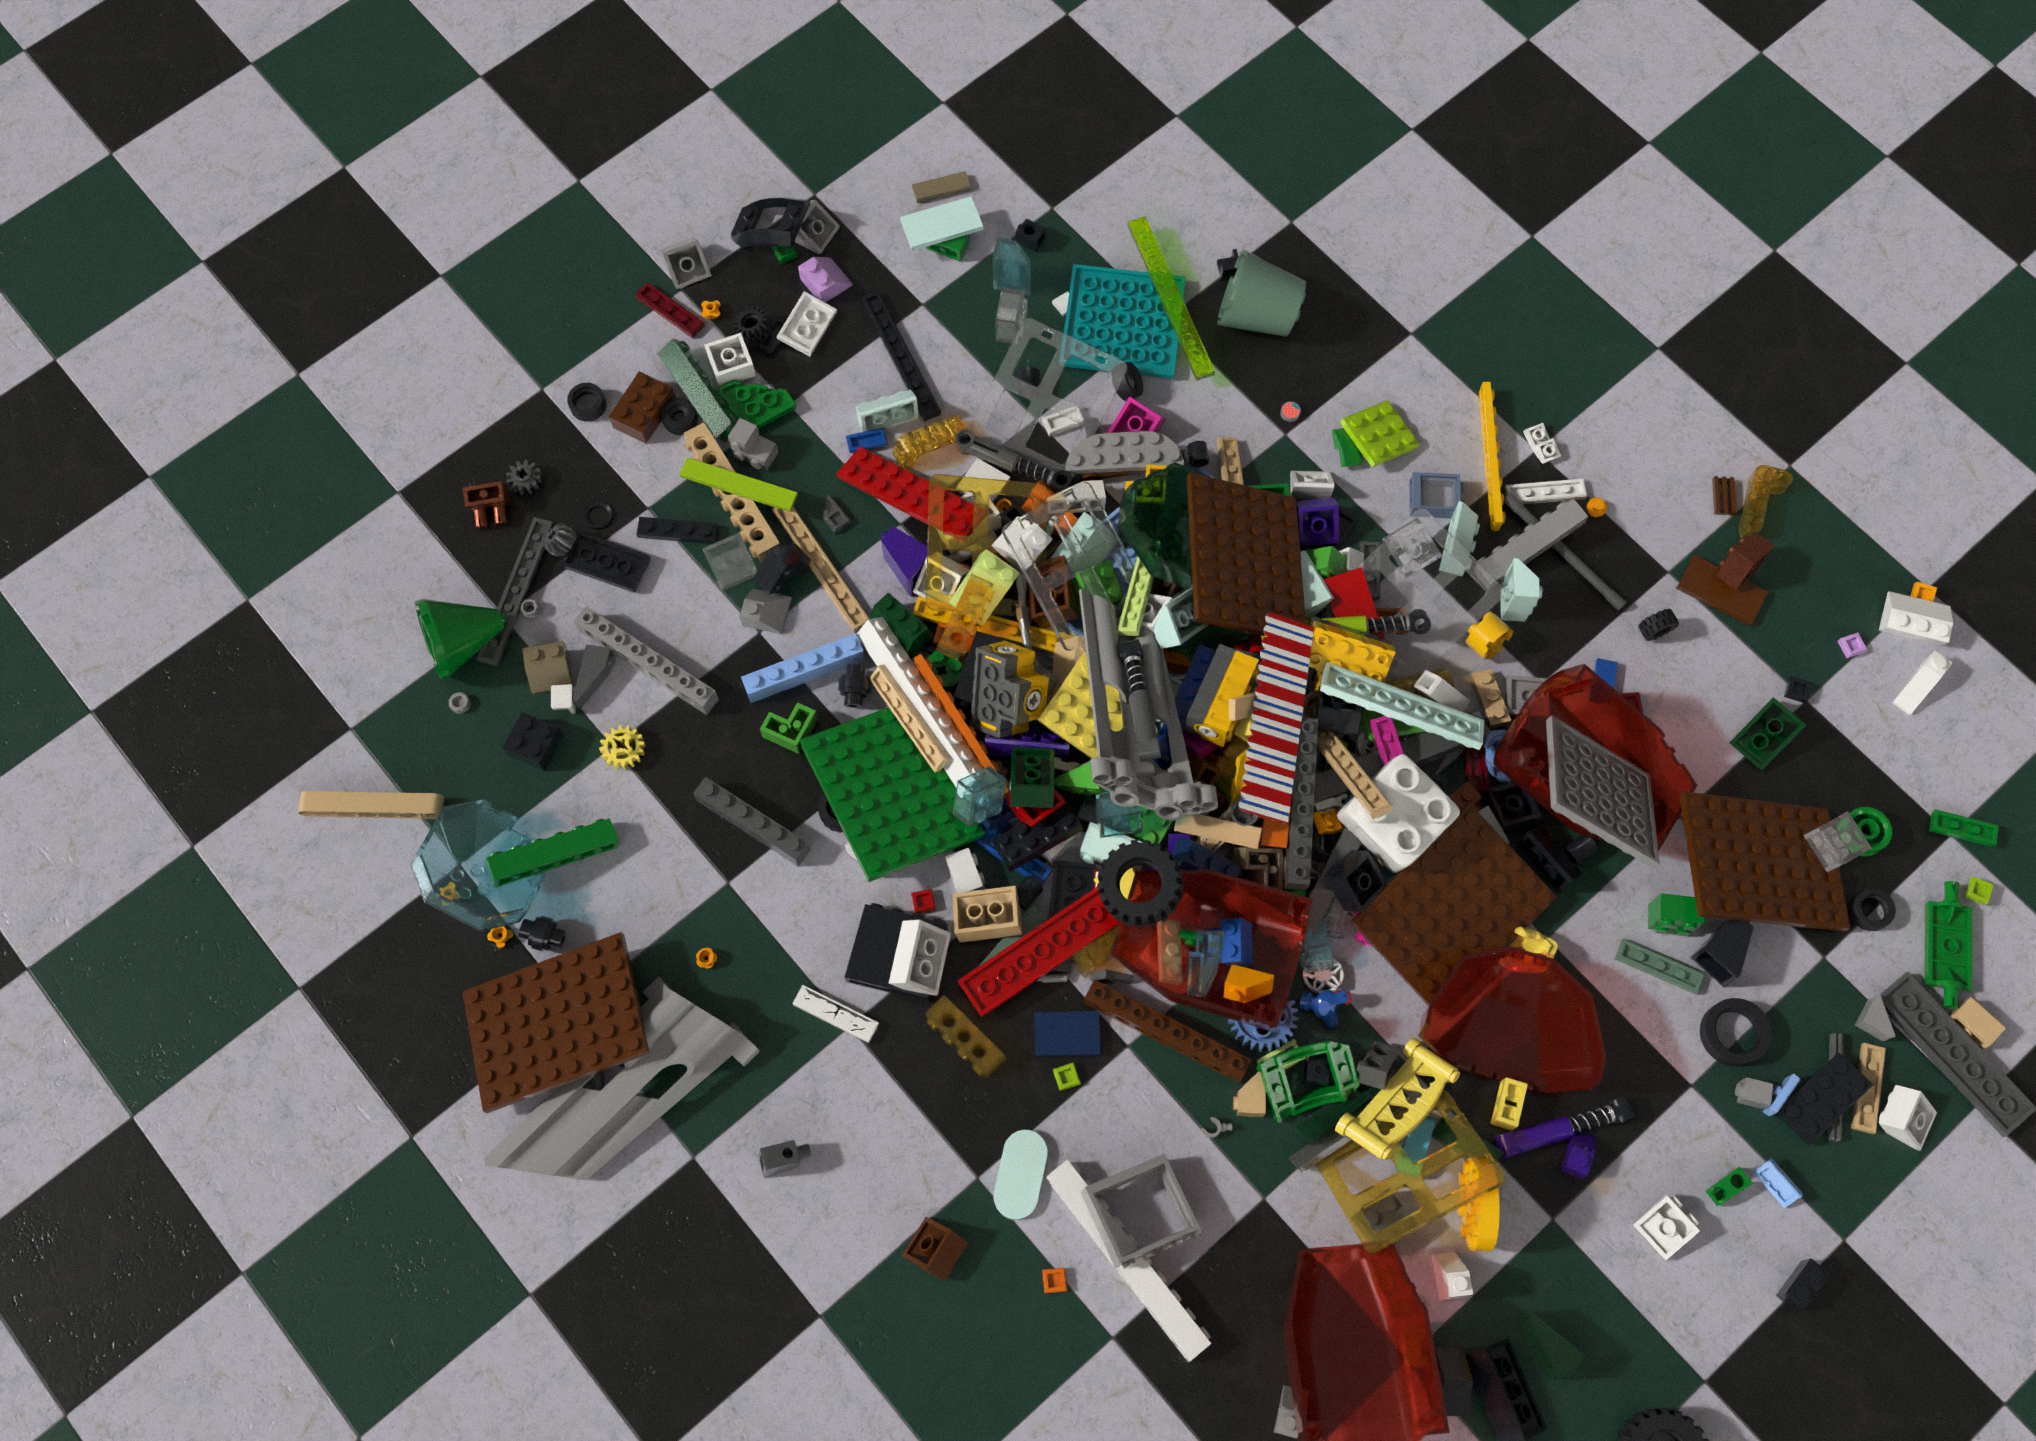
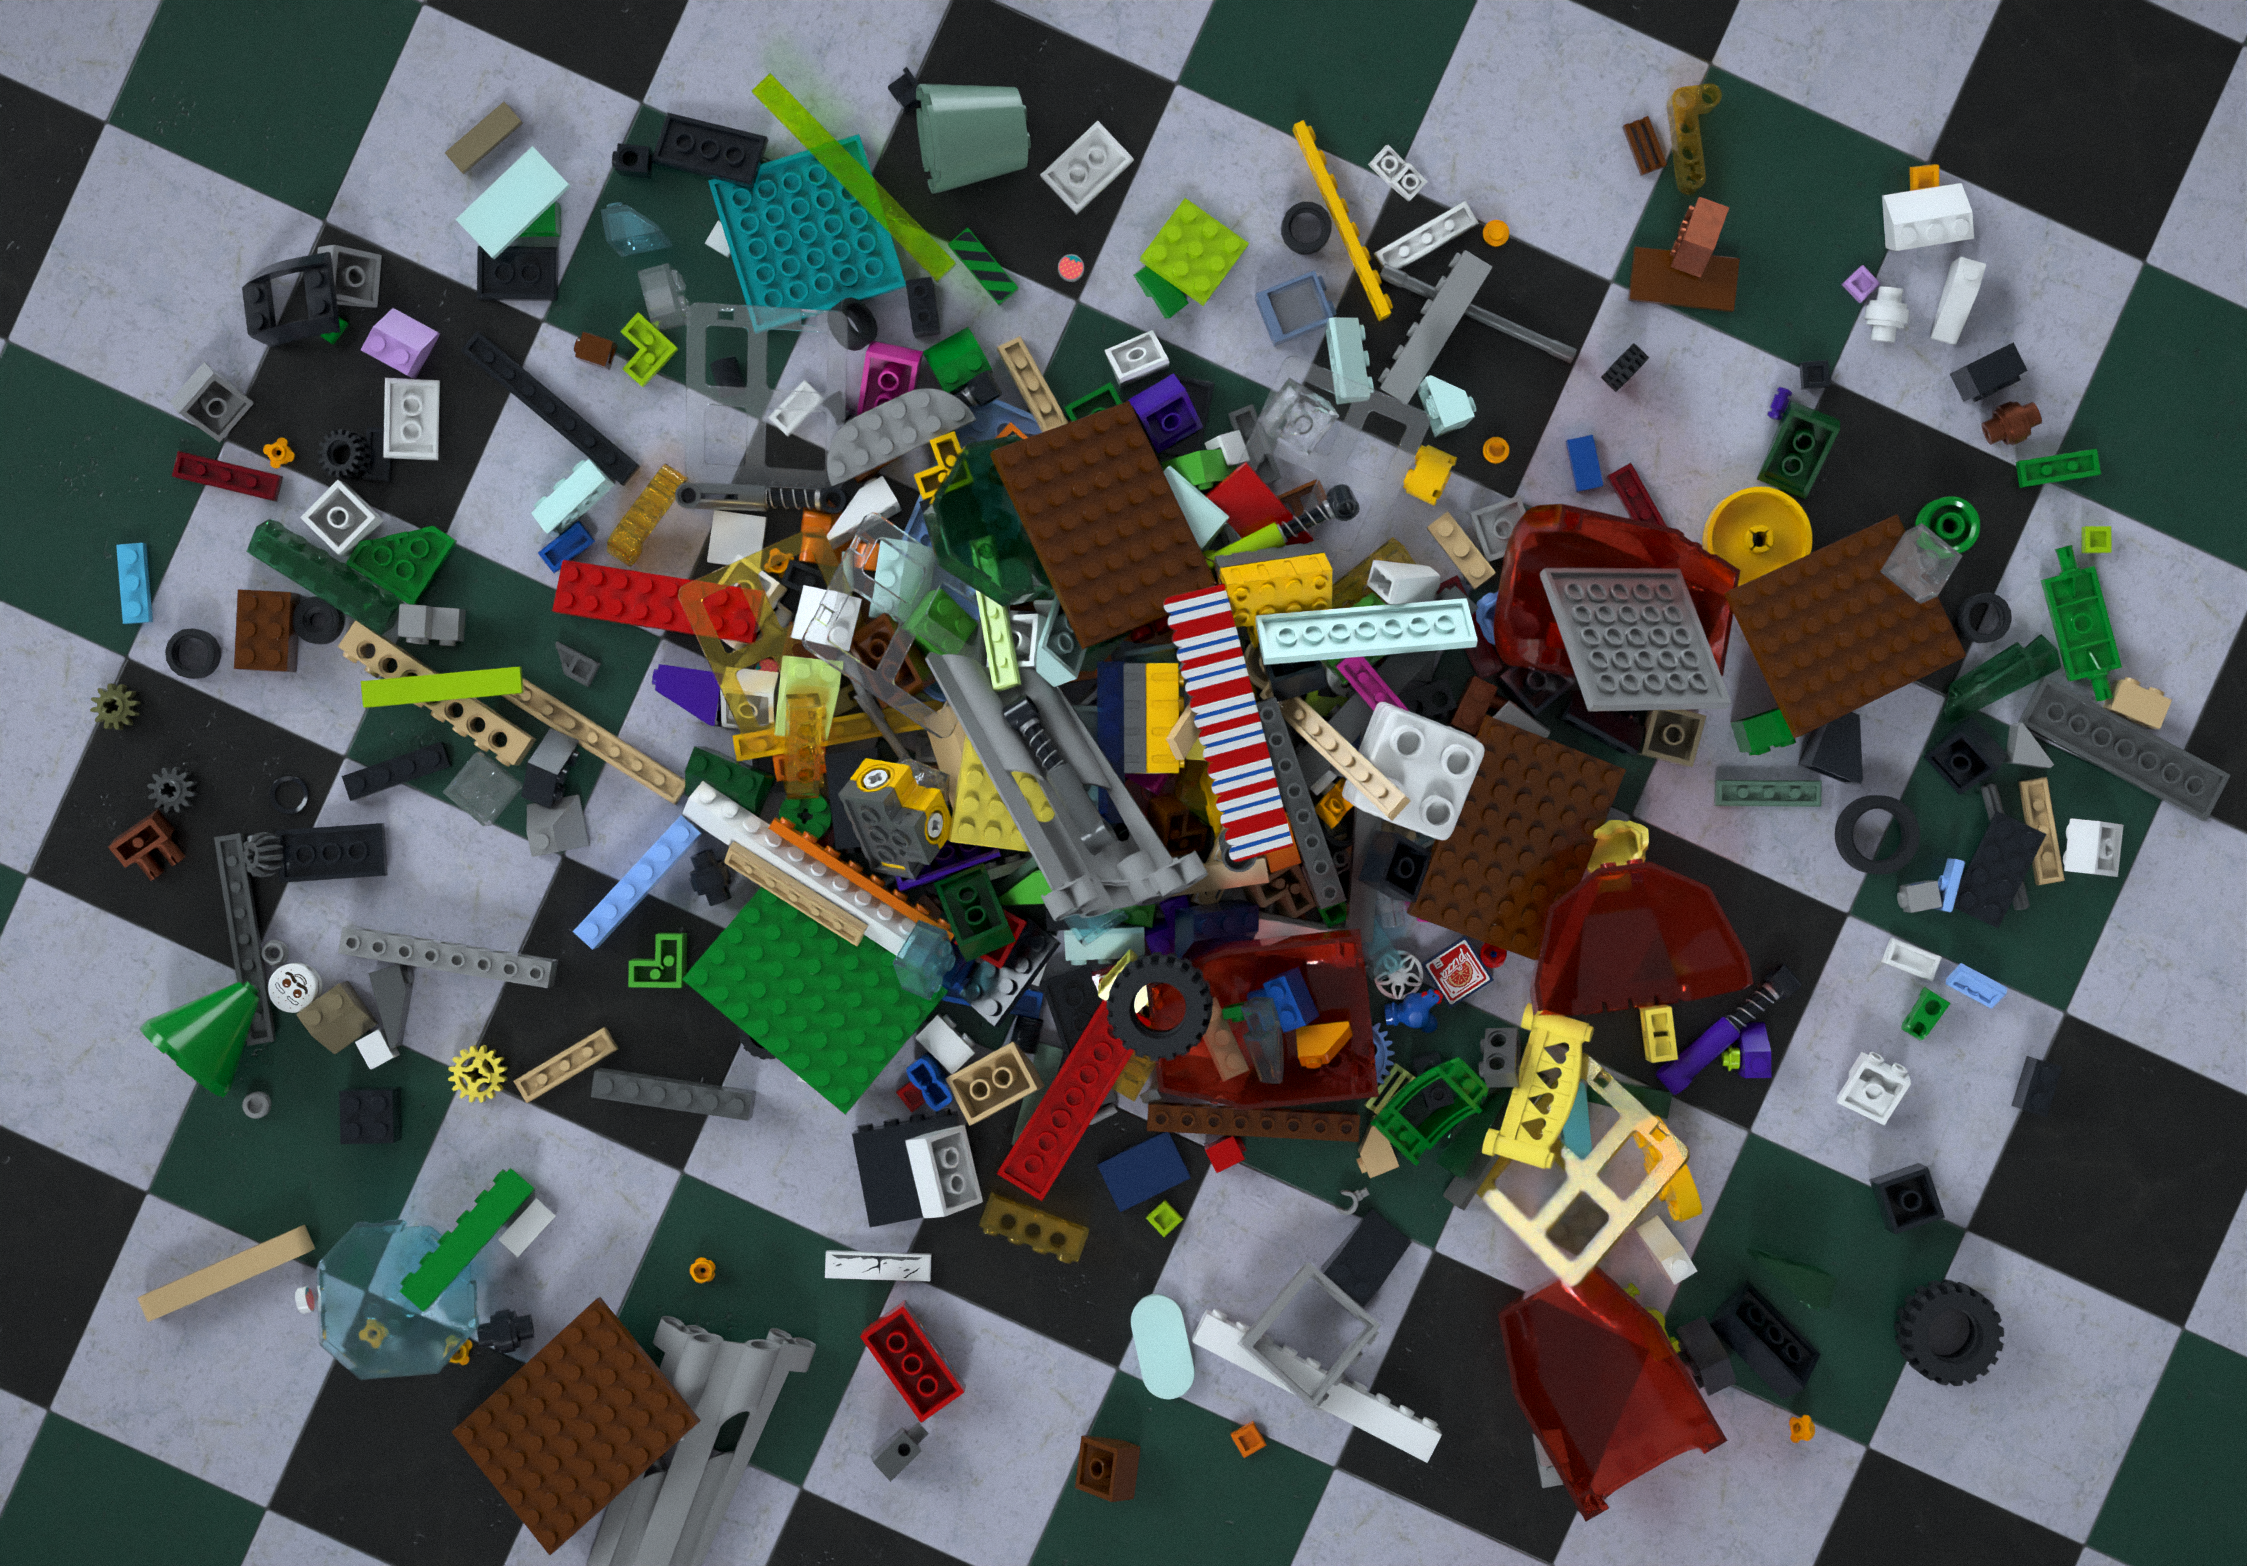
camera: 25 degrees left, 20 degrees up
(413, 846) = (305, 1300): none -> white tile
(517, 411) = (107, 713): none -> olive gear
(530, 632) = (294, 987): none -> white head
(573, 347) = (134, 583): none -> medium azure plate
(597, 869) = (526, 1228): none -> white slope
(686, 770) = (566, 1064): none -> tan tile
(827, 1093) = (913, 1361): none -> red brick
(921, 270) = (518, 274): none -> black tile
(941, 897) = (928, 1076): none -> blue brick
(948, 332) = (595, 350): none -> reddish brown brick
(985, 348) = (653, 352): none -> lime plate
(1083, 248) = (710, 150): none -> black tile
(1135, 1046) = (1225, 1152): none -> red brick
(1179, 392) = (923, 307): none -> black brick
(1187, 431) = (957, 361): none -> green slope
(1210, 1176) = (1366, 1257): none -> black slope
(1231, 387) = (983, 266): none -> tile
(1328, 357) = (1087, 167): none -> white tile
(1369, 992) = (1457, 971): none -> tile
(1401, 991) = (1492, 956): none -> red tile
(1464, 437) = (1320, 213): none -> black tyre
(1542, 644) = (1495, 450): none -> light orange plate
(1559, 1152) = (1731, 1058): none -> lime plate
(1600, 888) = (1672, 736): none -> dark tan brick
(1665, 1326) = (1907, 1198): none -> black brick
(1726, 764) = (1763, 512): none -> yellow piece
(1731, 1141) = (1911, 959): none -> white tile
(1764, 698) = (1779, 403): none -> dark purple piece
(1825, 1003) = (1966, 755): none -> black slope
(1865, 669) = (1886, 314): none -> white piece
(1873, 958) = (2001, 676): none -> clear green wedge
(1931, 736) = (1989, 373): none -> black brick
(1938, 779) = (2011, 423): none -> copper piece

